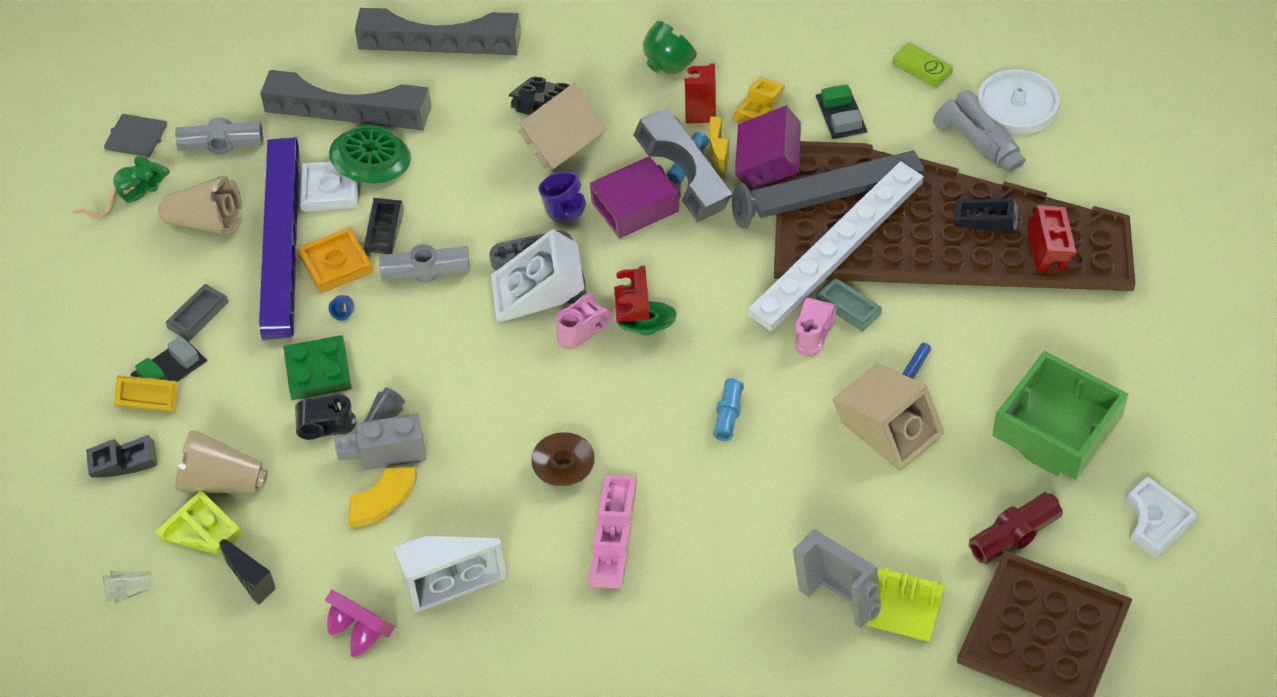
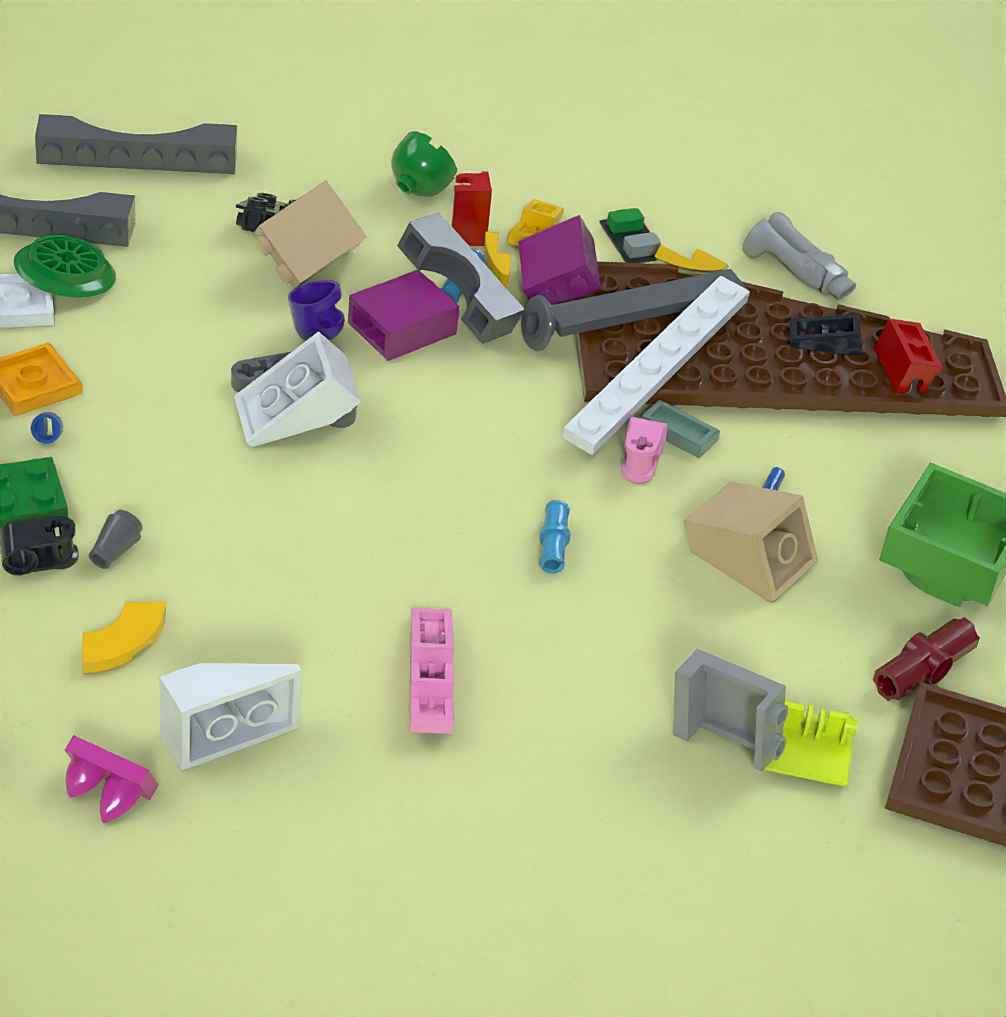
camera: 15 degrees left, 10 degrees down
(379, 207) = (93, 322): black slope -> none
(384, 442) = (122, 572): light grey hinge -> none
(424, 263) = (149, 380): light grey piece -> none
(562, 449) = (356, 589): reddish brown dish -> none
(581, 321) = (356, 443): bright pink piece -> none
(632, 299) = (423, 417): red hinge -> none
(660, 315) = (438, 439): green dish -> none
(892, 140) = (700, 261): none -> yellow slope
(922, 65) = (718, 193): lime tile -> none
(1019, 101) = (838, 229): white piece -> none

